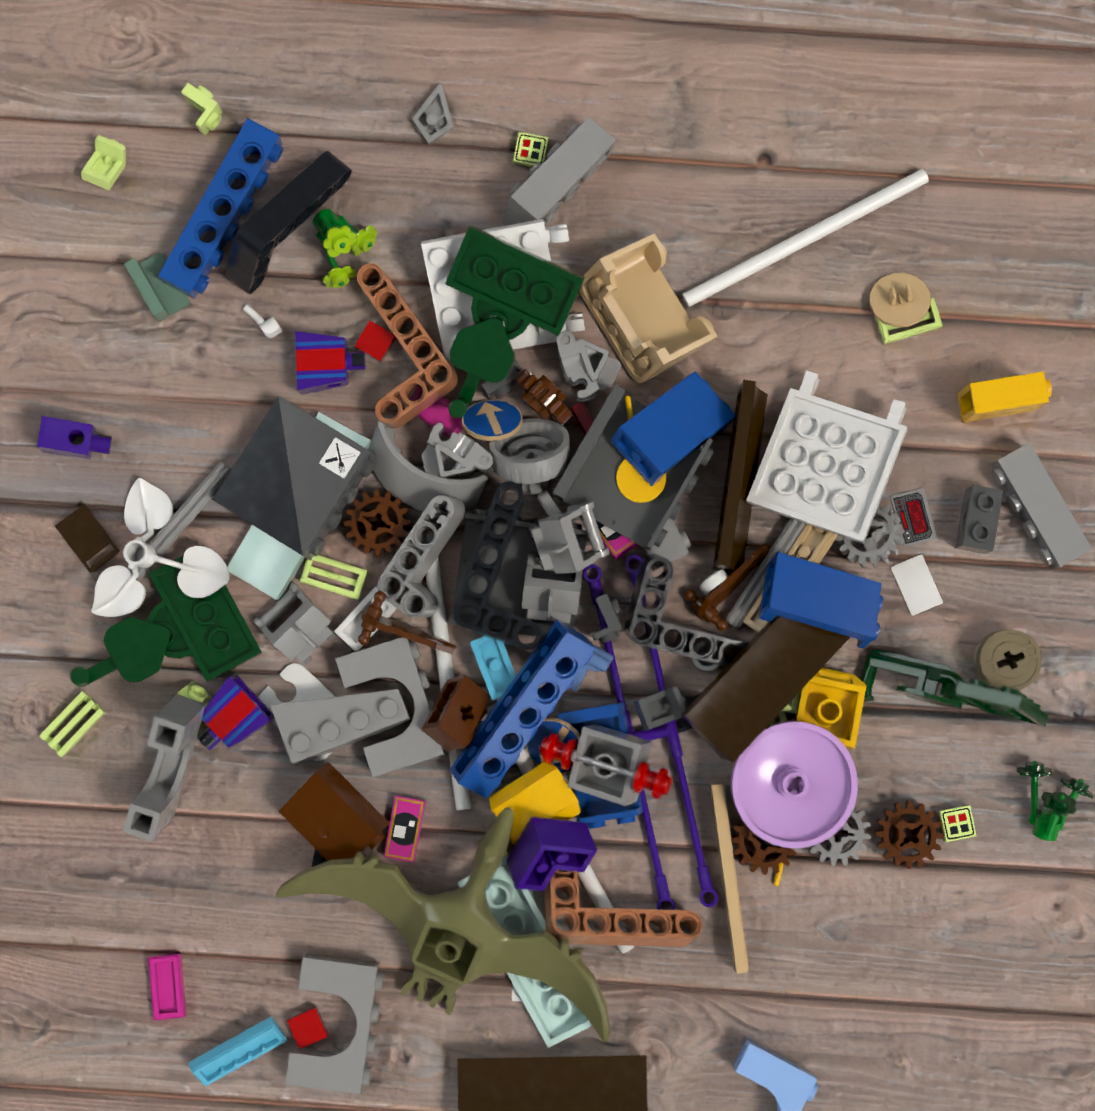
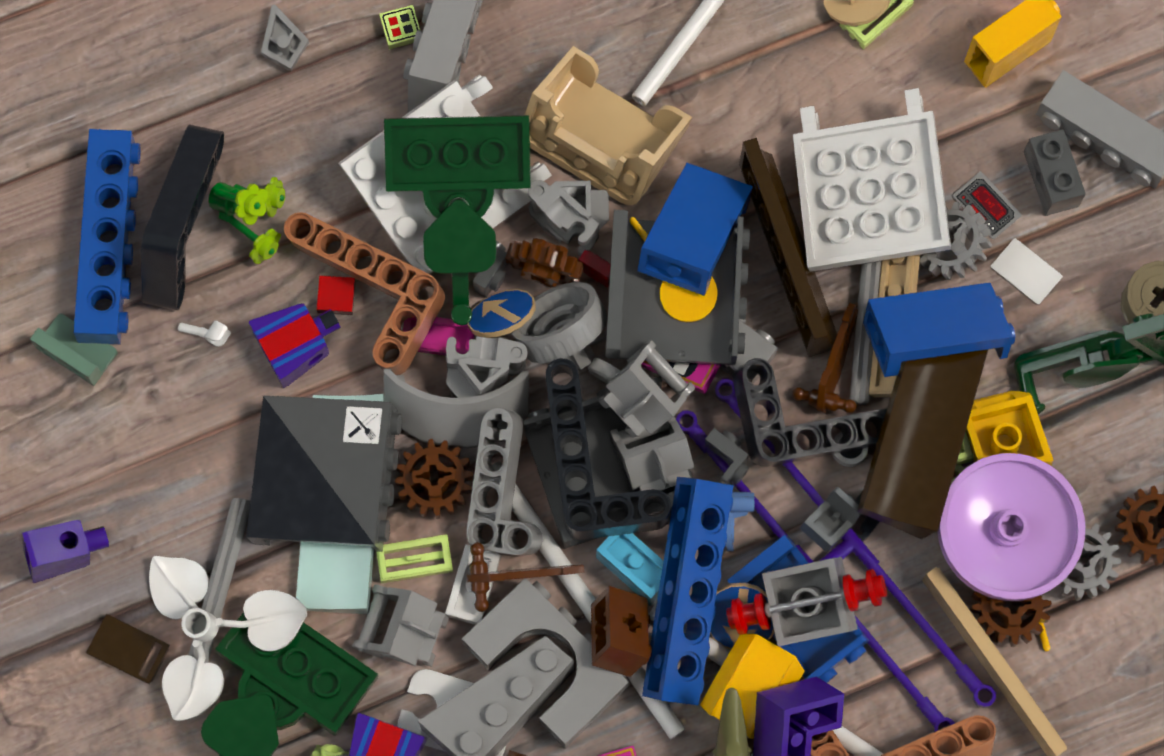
camera: 30 degrees left, 10 degrees down
(203, 101) = (33, 138): yellowish green bracket -> none
(713, 582) = (816, 367): white tile -> none

